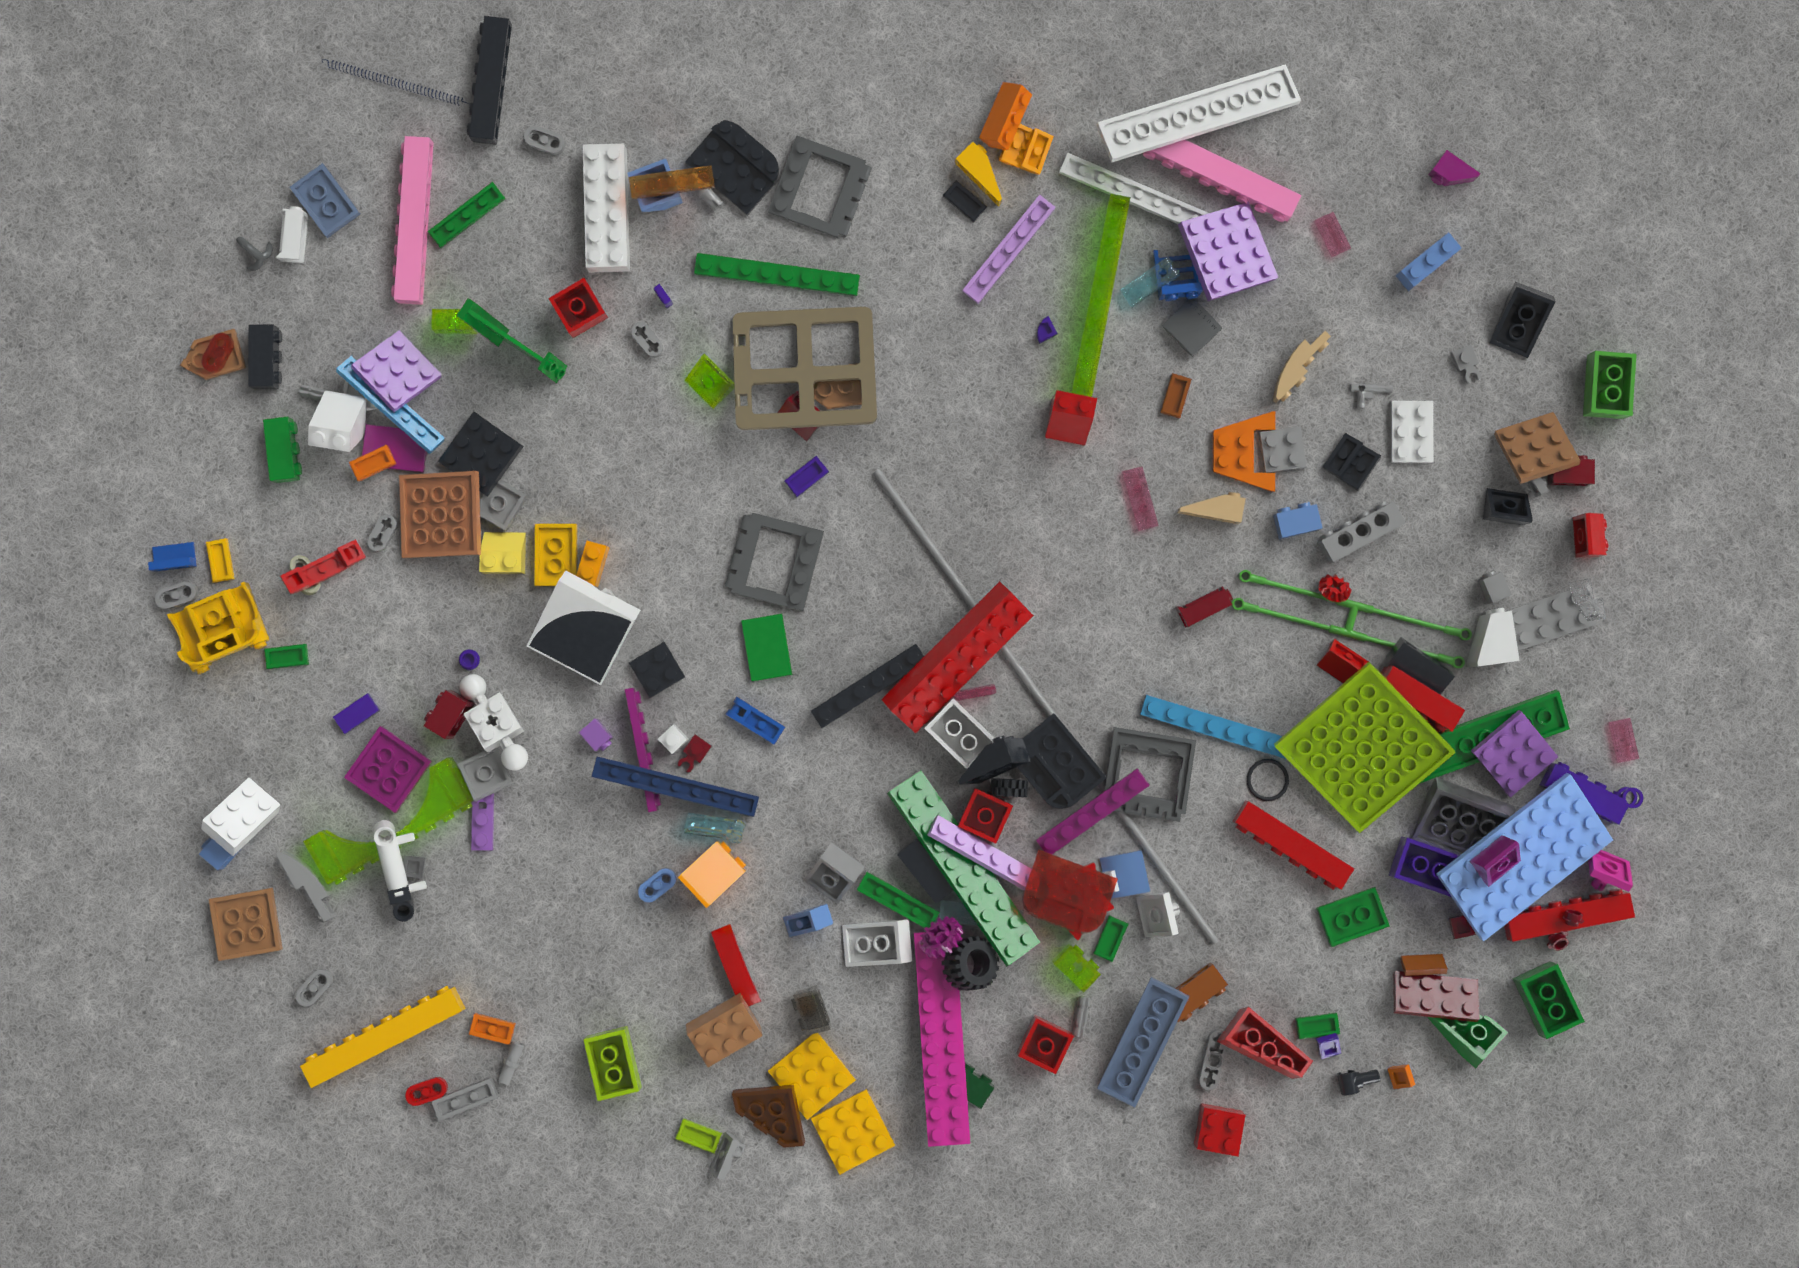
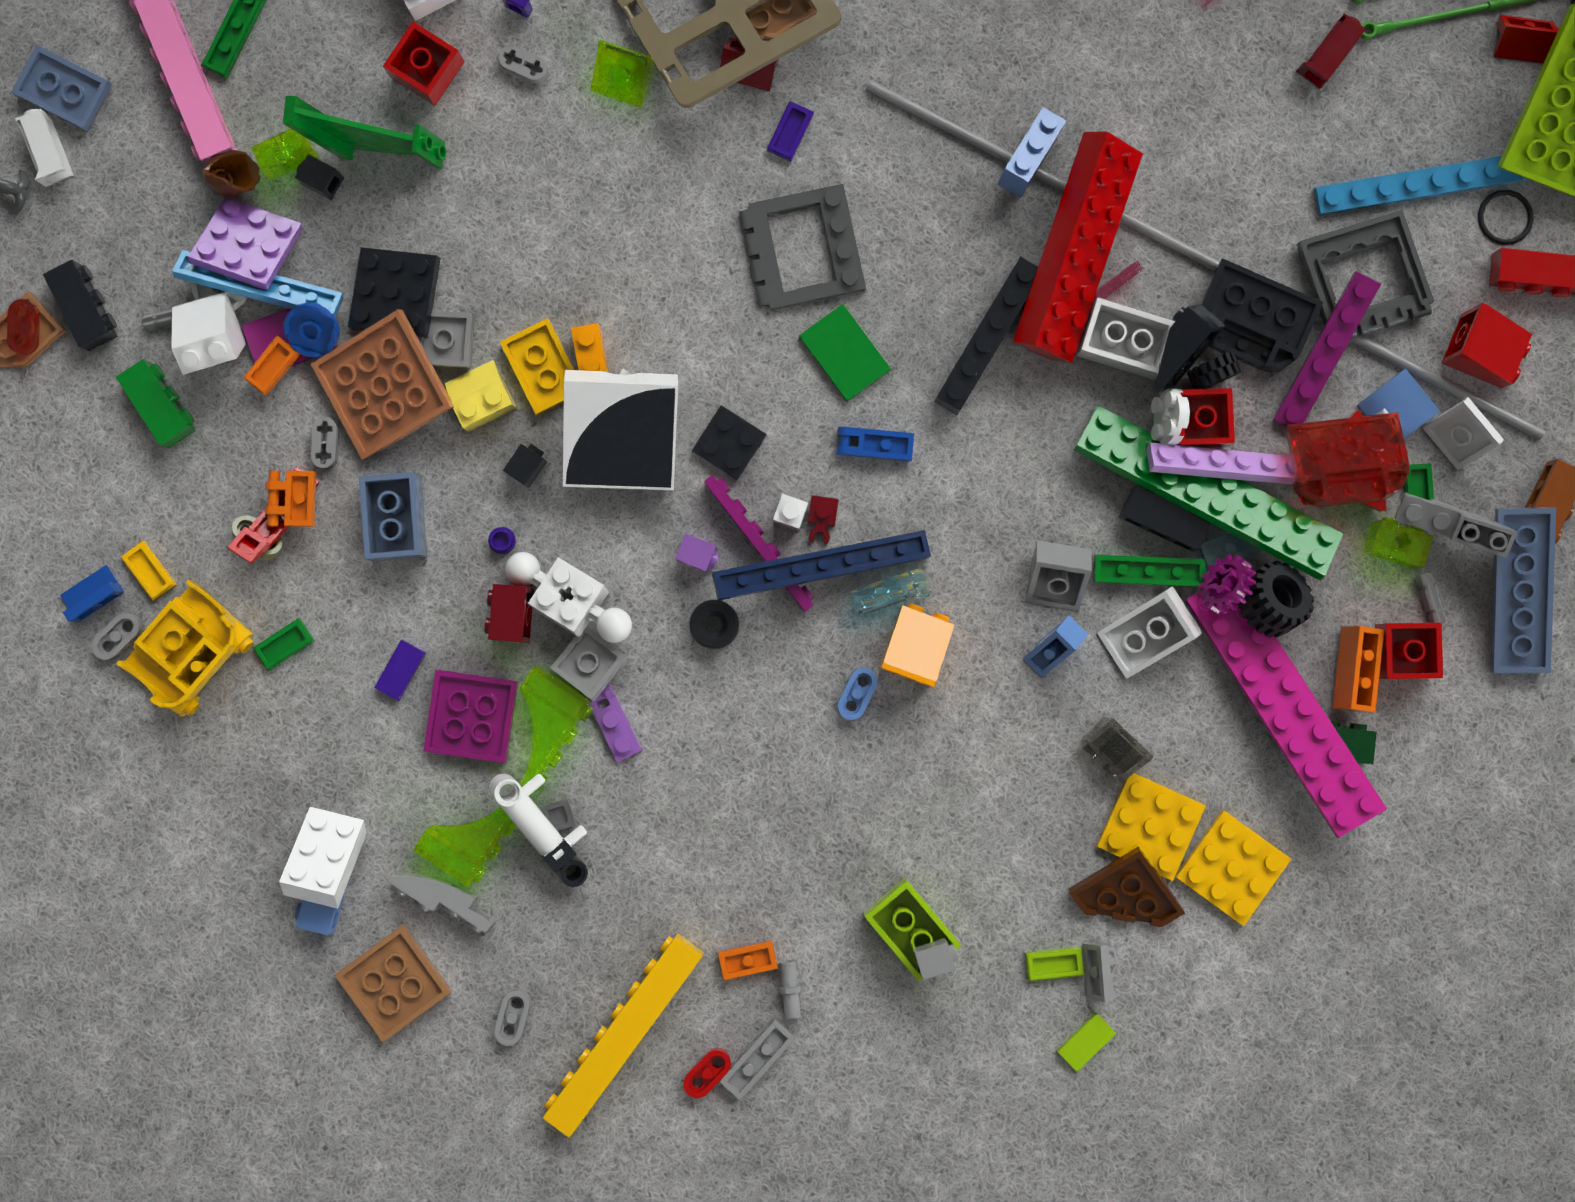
camera: 20 degrees left, 0 degrees up
(345, 564) = (299, 498): none -> orange plate
(402, 608) = (392, 516): none -> sand blue brick
(410, 318) = (231, 174): none -> reddish brown hair
(411, 453) = (311, 329): none -> blue tile
(468, 349) = (319, 177): none -> black brick
(510, 616) = (525, 464): none -> black brick
(572, 789) = (699, 620): none -> black tyre
(615, 1091) = (935, 958): none -> light grey brick
(693, 1199) = (1086, 1041): none -> lime tile
(723, 1030) = (1023, 823): medium nougat brick -> none
(735, 965) = (997, 743): red slope -> none
(960, 575) = (1031, 152): none -> brick
(960, 804) = (1170, 416): none -> white plate
(1004, 1039) = (1358, 669): none -> orange brick
(1120, 974) = (1456, 524): none -> light grey slope
(1206, 864) = (1488, 346): none -> red slope

